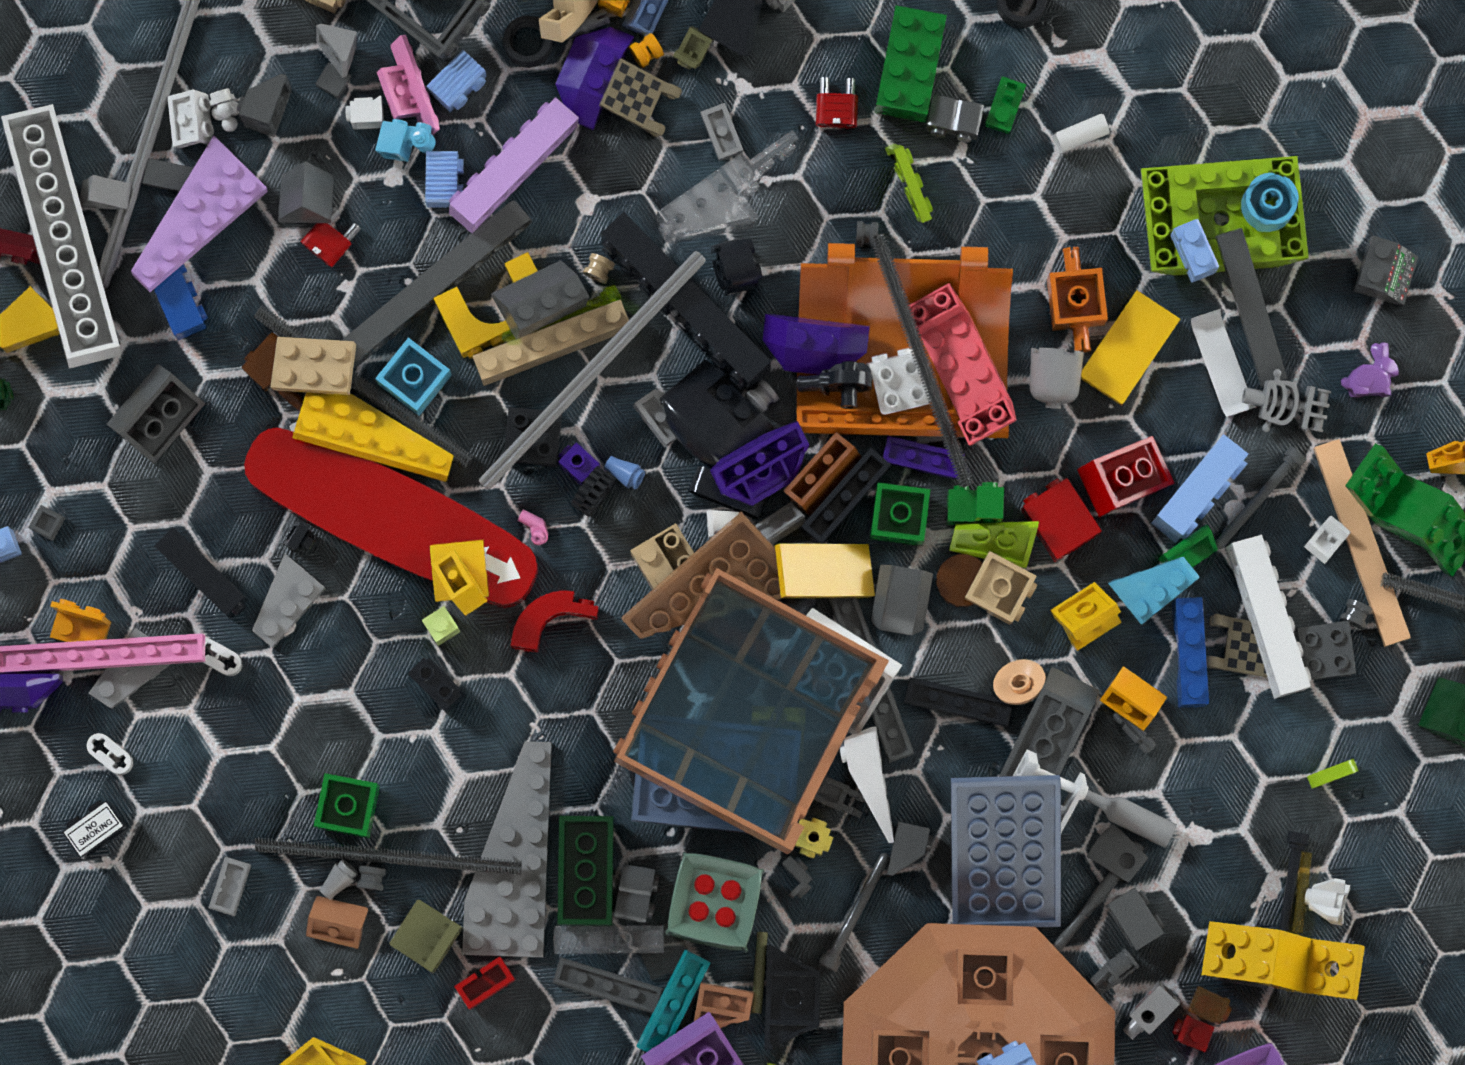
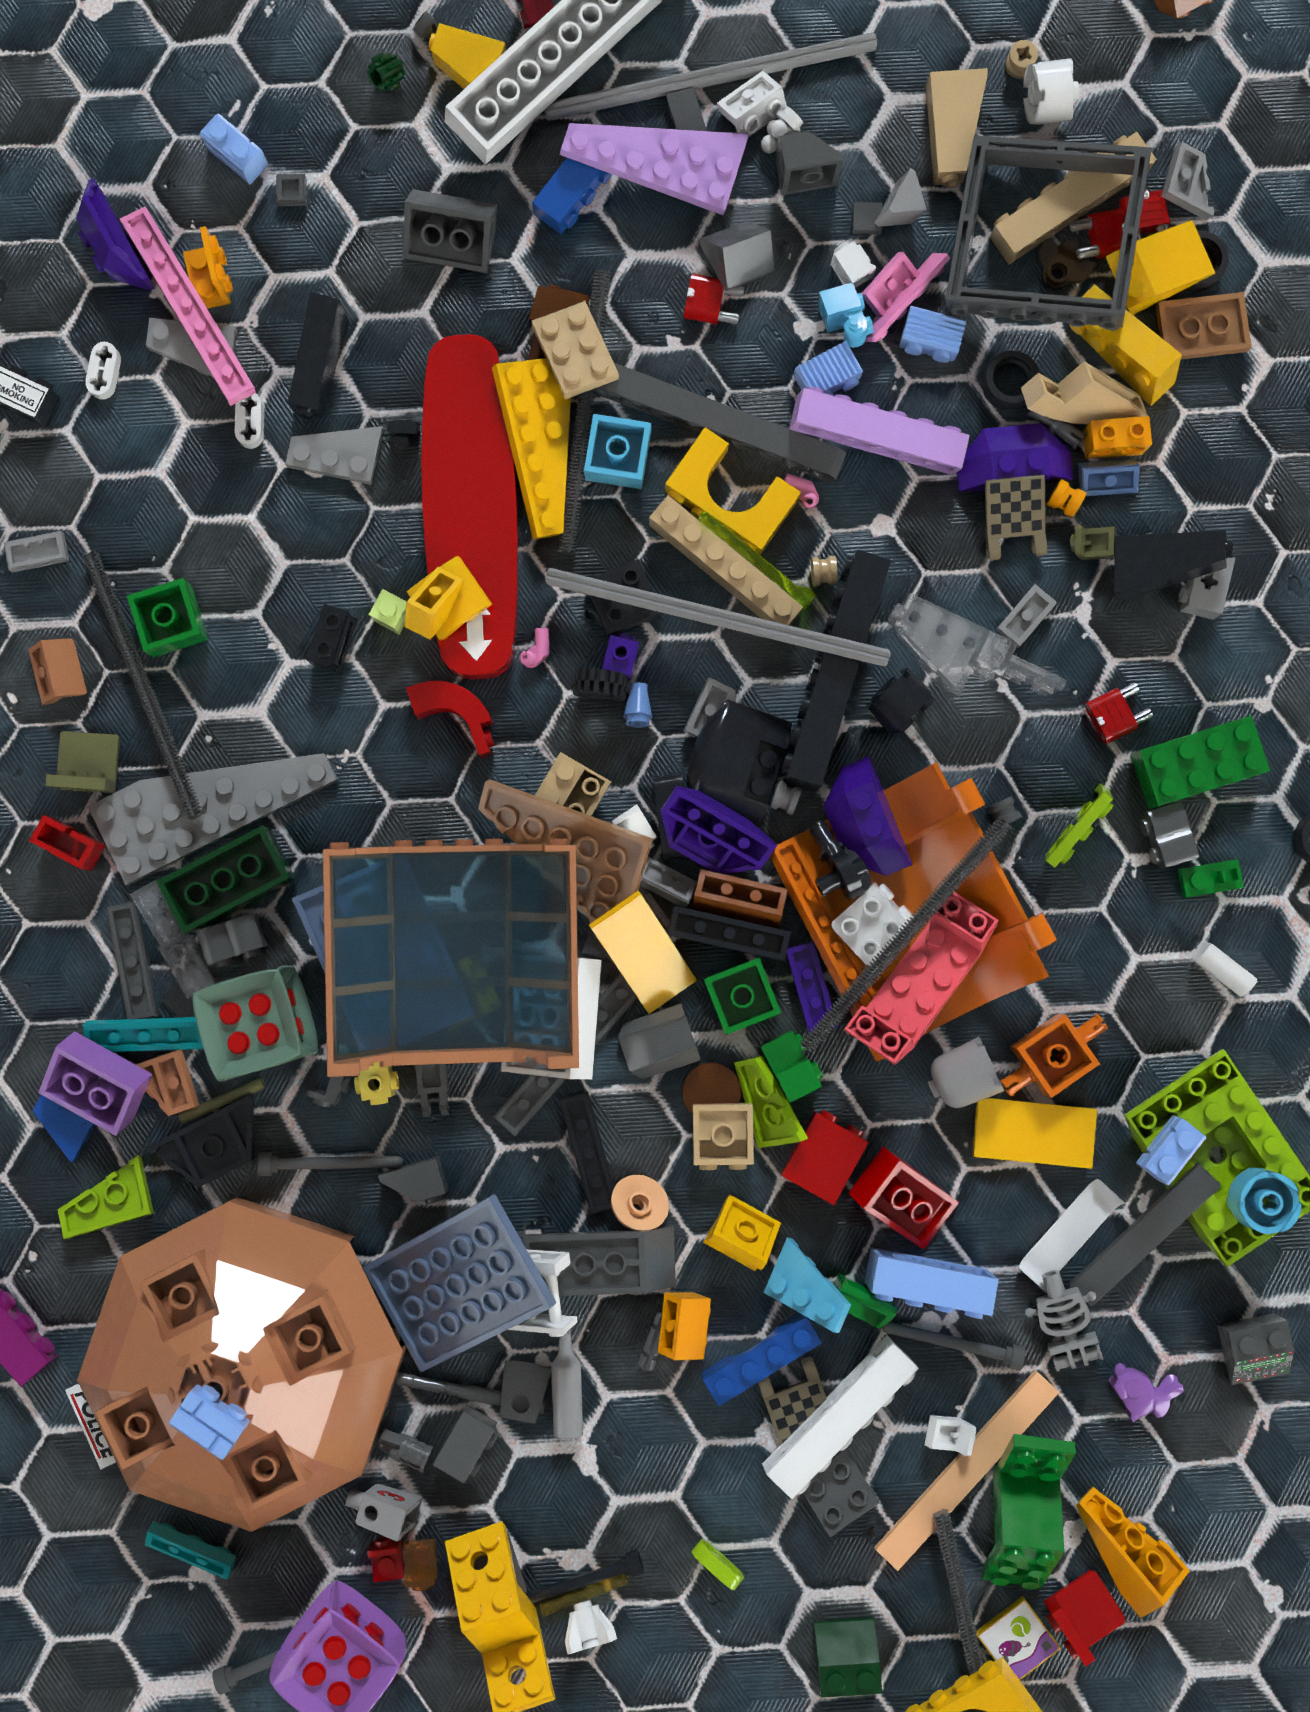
camera: 60 degrees right, 5 degrees up
(104, 193) = (635, 64): light grey slope -> none
(338, 879) = (100, 650): light grey cone -> none
(371, 878) = (113, 680): dark grey wheel -> none
(533, 247) = (809, 496): none -> bright pink arm
(540, 298) = (759, 528): dark grey slope -> none
(865, 765) = (473, 1095): white wedge -> none
(1356, 613) = (891, 1503): dark grey wheel -> none

